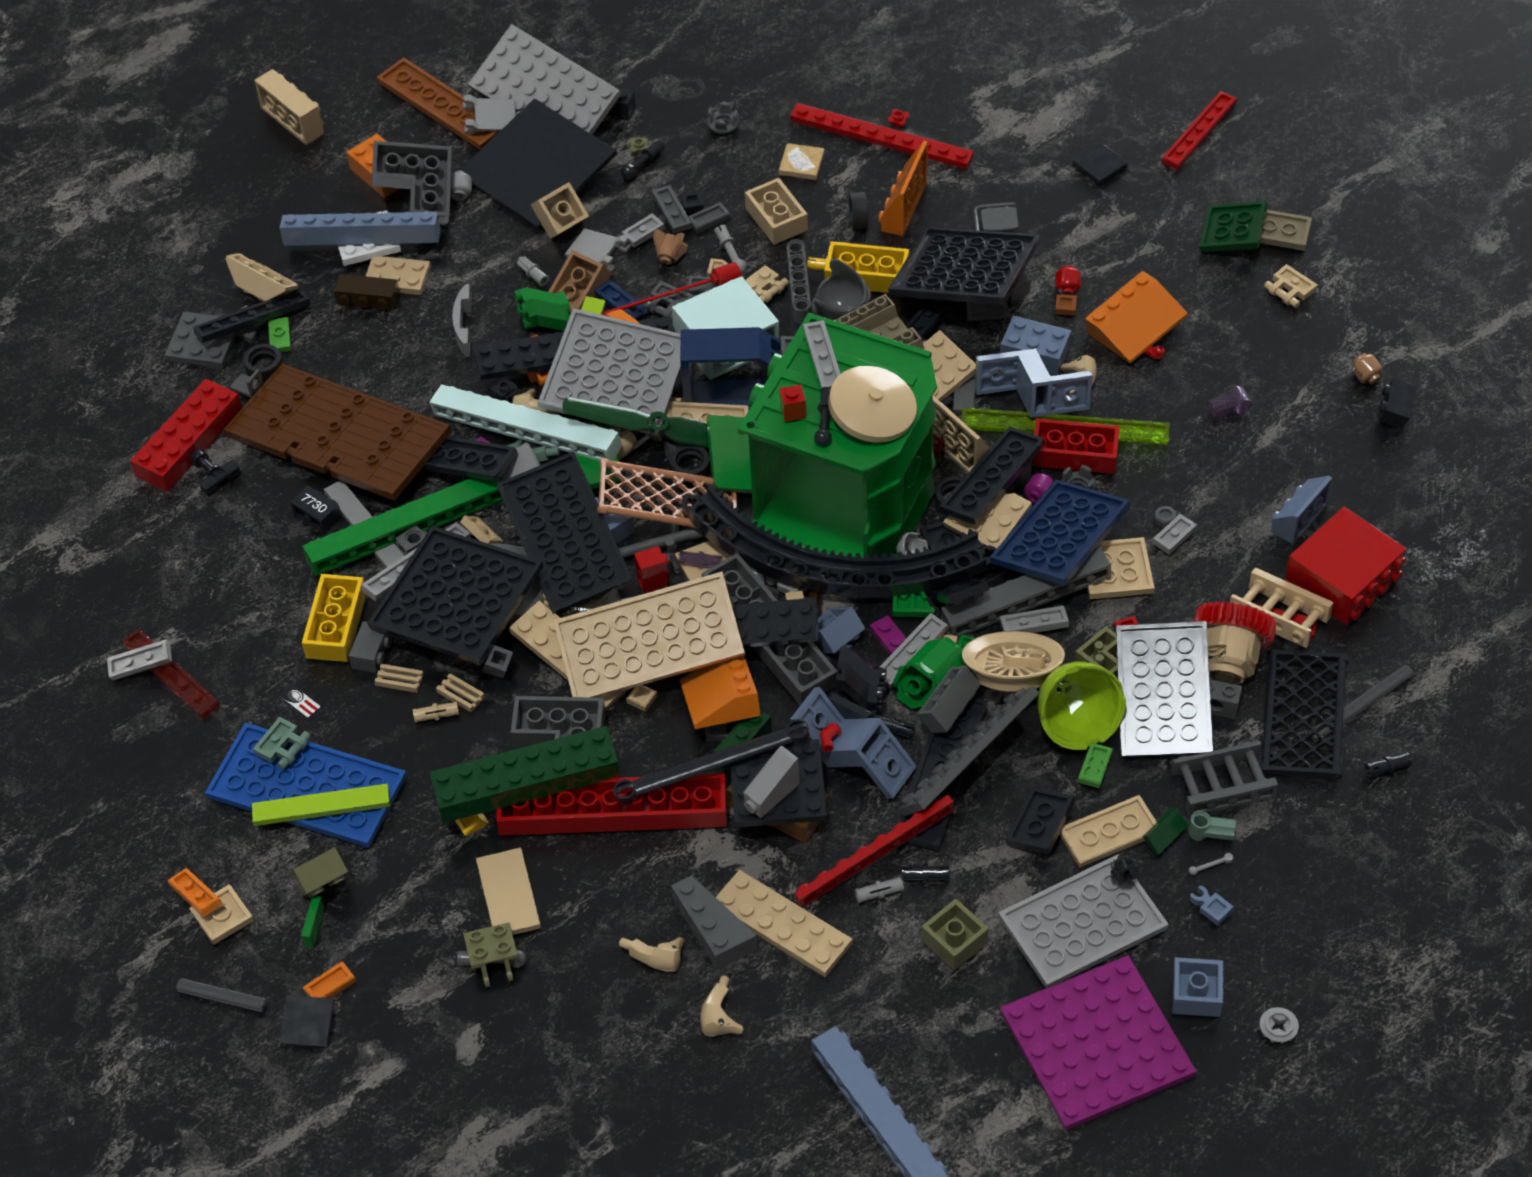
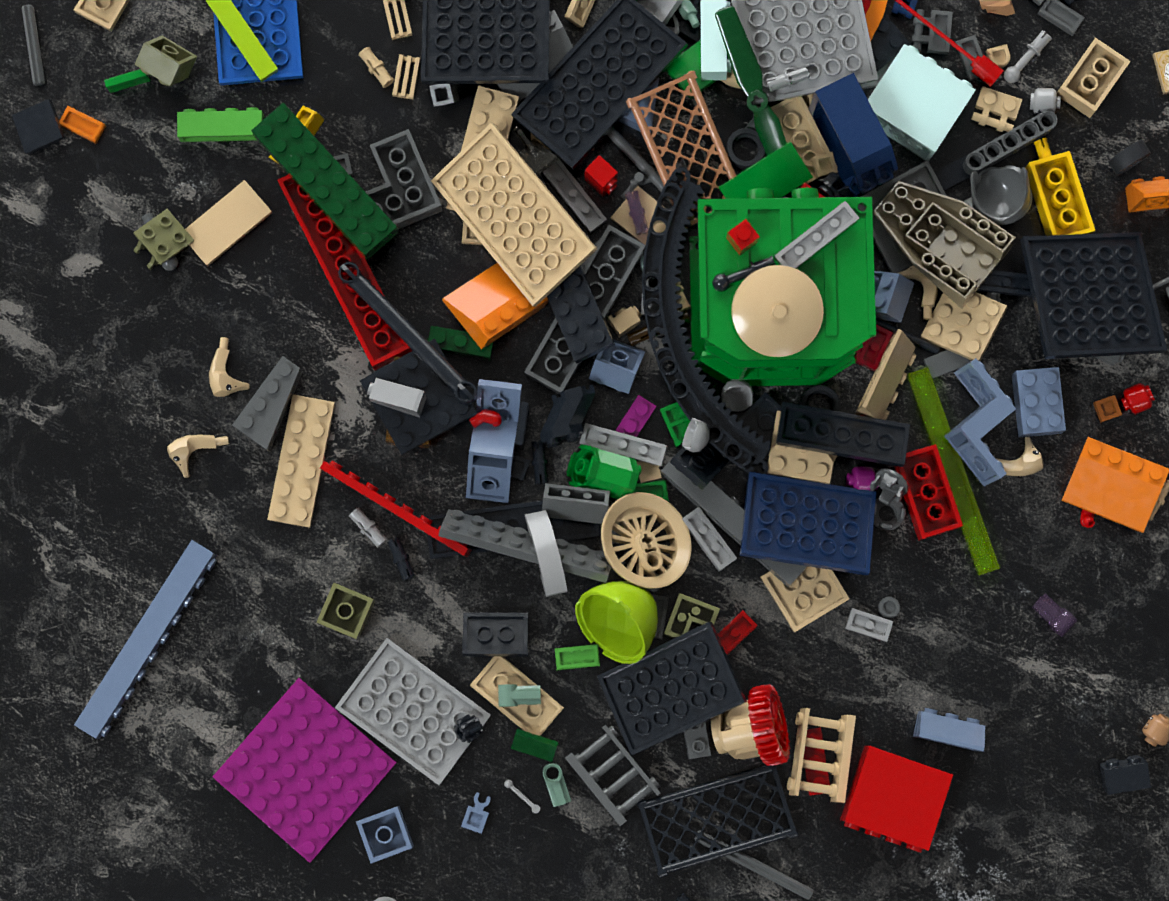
camera: 60 degrees right, 30 degrees up
(409, 859) = (218, 125): none -> bright green brick
(652, 394) = (787, 79): none -> light grey axle
(738, 408) = (824, 164): none -> tan tile
(775, 250) = (1044, 100): none -> light grey head
(935, 577) = (696, 436): none -> light grey hair
(986, 723) = (546, 553): none -> light grey slope
(1060, 467) = (886, 481): none -> dark grey piece
(1109, 823) = (514, 695): none -> sand green piece

